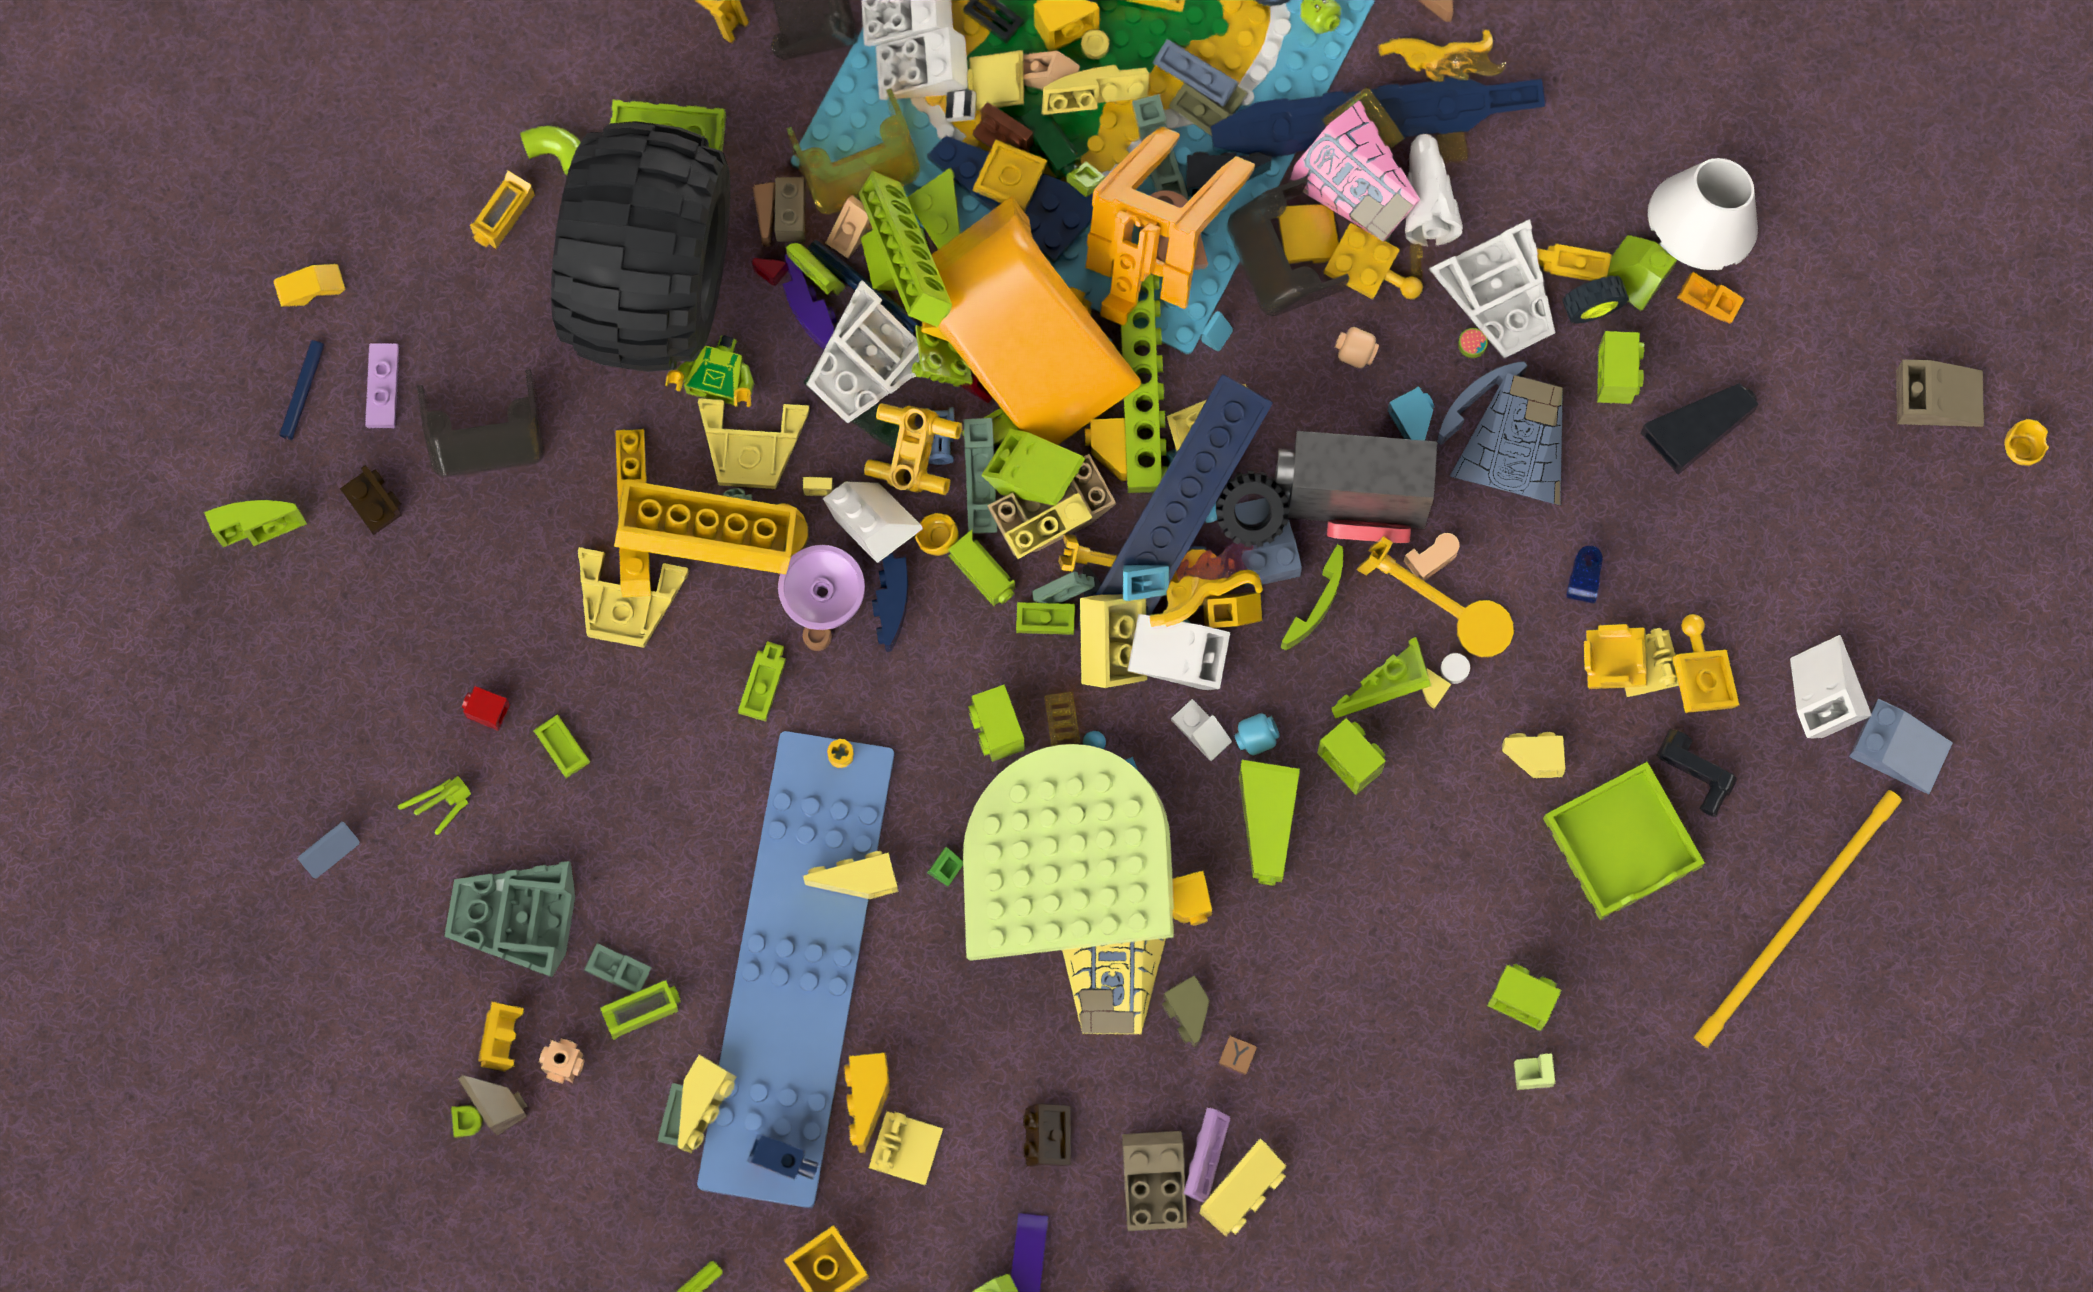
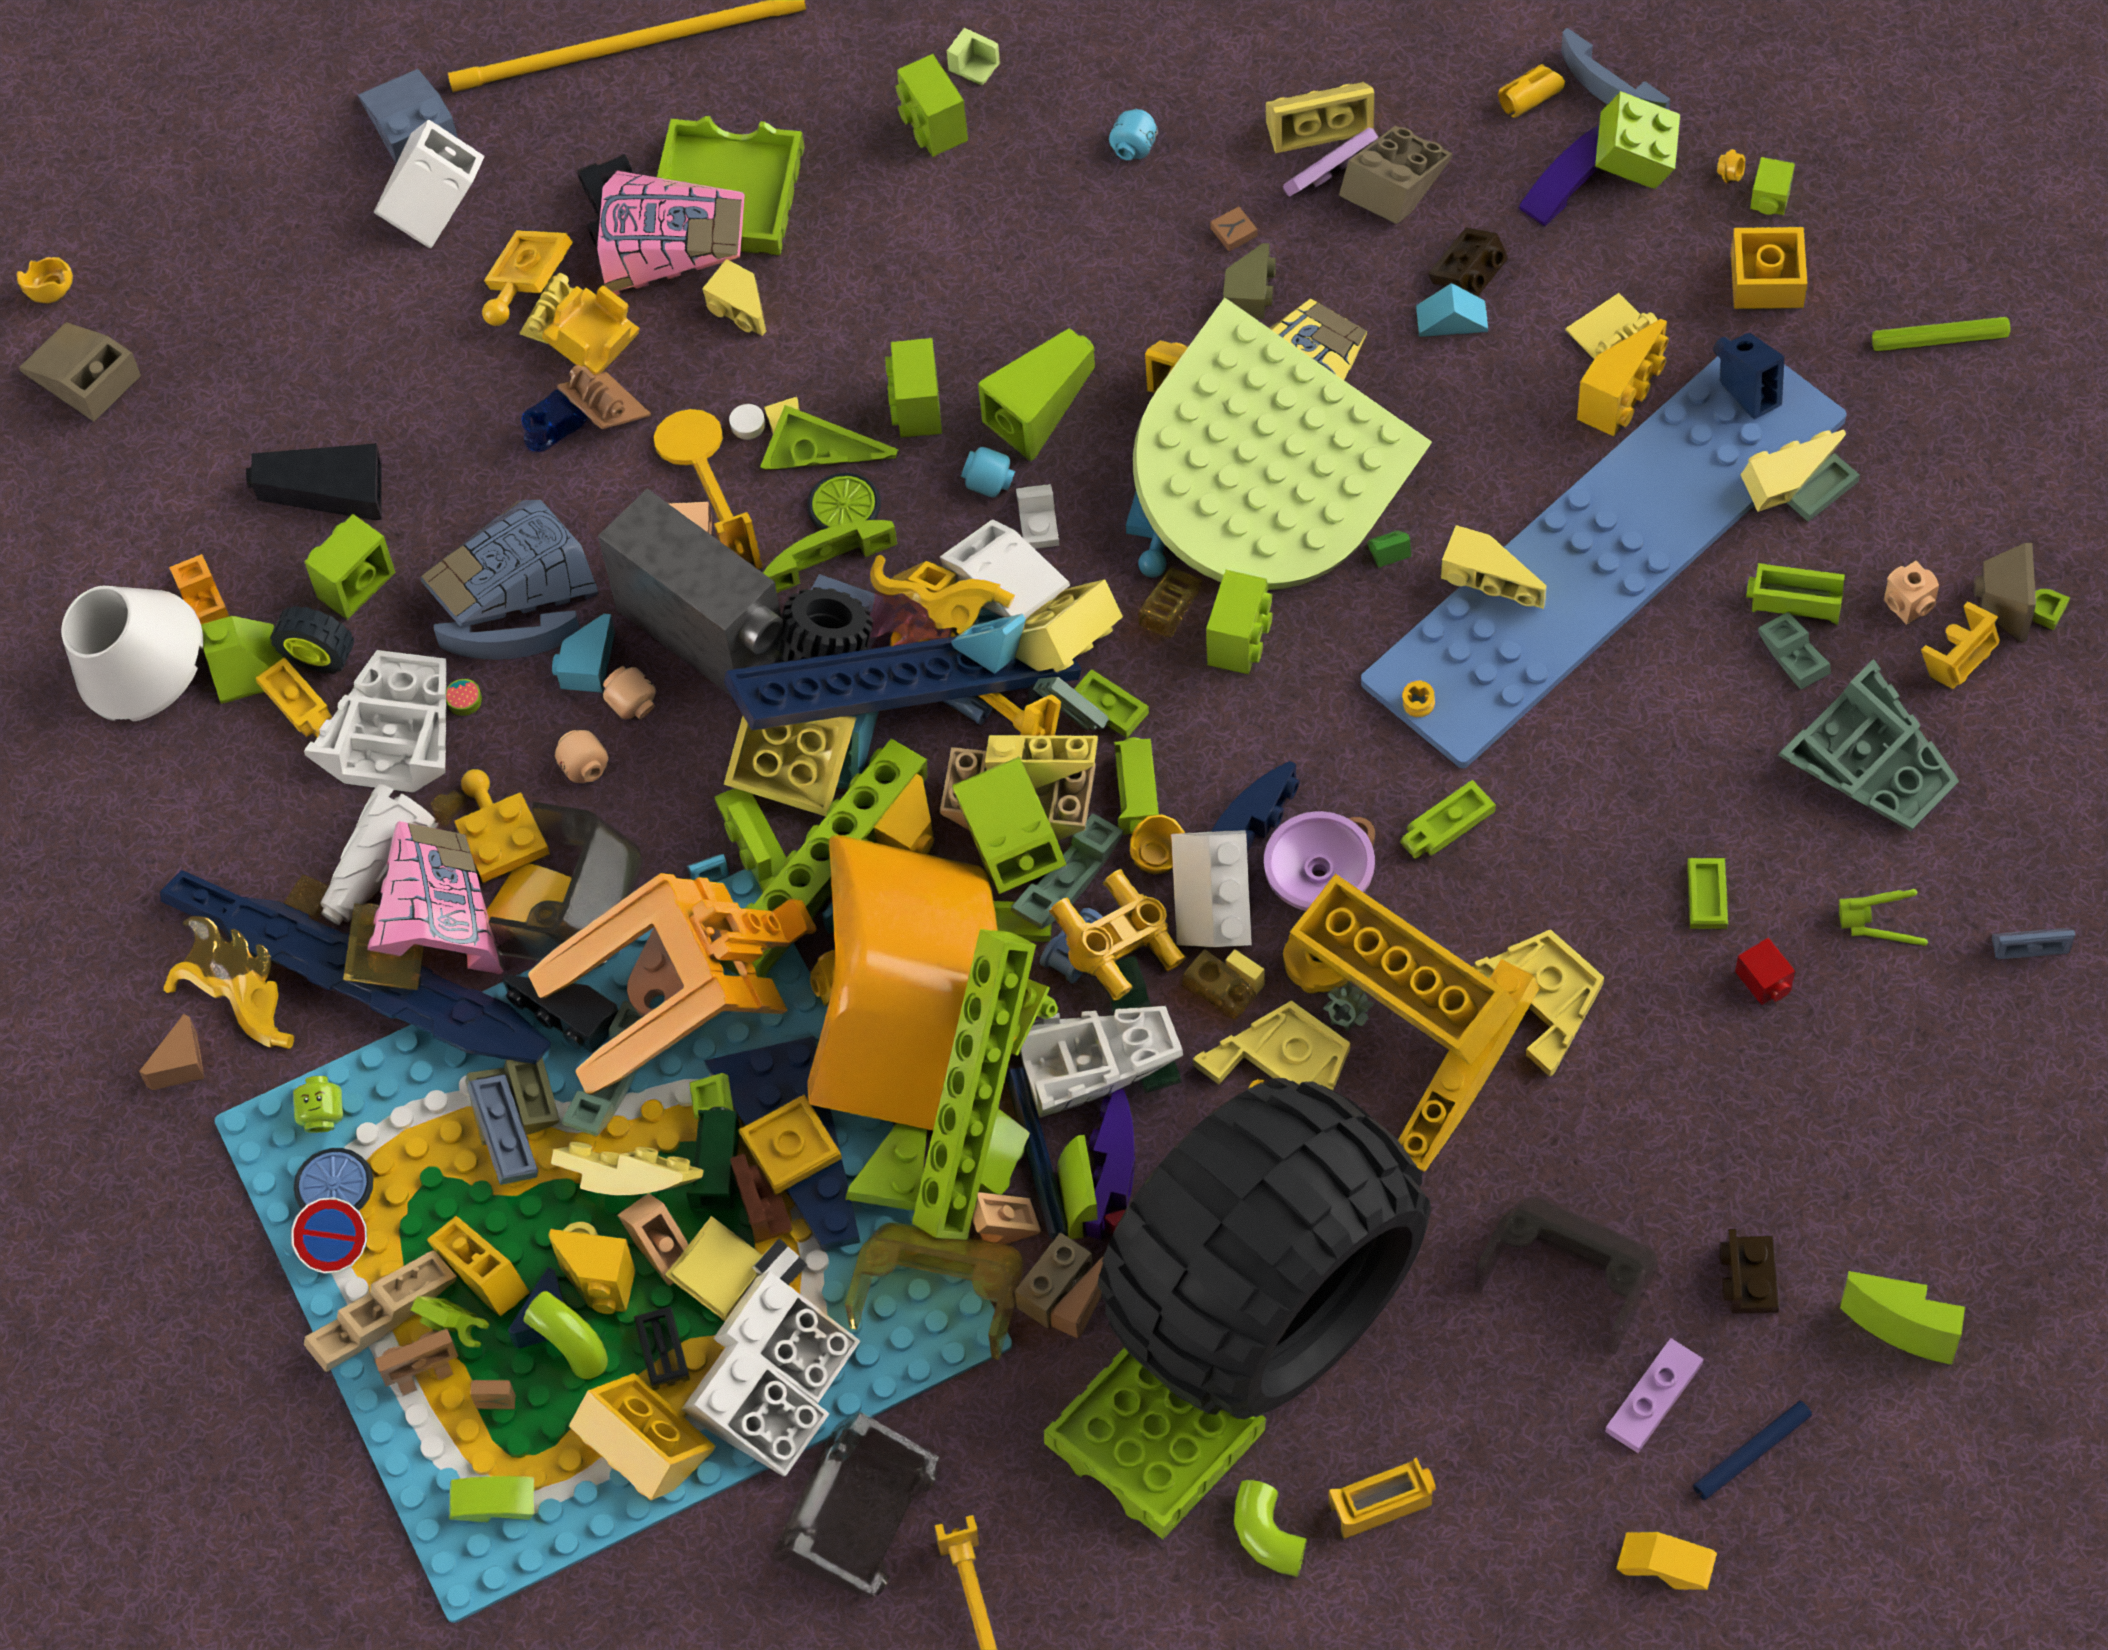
camera: 140 degrees left, 15 degrees down
(833, 464) = (1218, 985): none -> clear yellow leg
(1030, 1085) = (1451, 312): none -> medium azure slope
(1193, 364) = (752, 833): none -> lime bracket
(1338, 650) = (842, 500): none -> lime wheel
(1363, 412) = (629, 693): none -> light nougat head
(1367, 1083) = (1133, 134): none -> medium azure head
(1561, 610) = (602, 398): none -> medium nougat hinge
(1632, 767) = (664, 228): none -> wedge

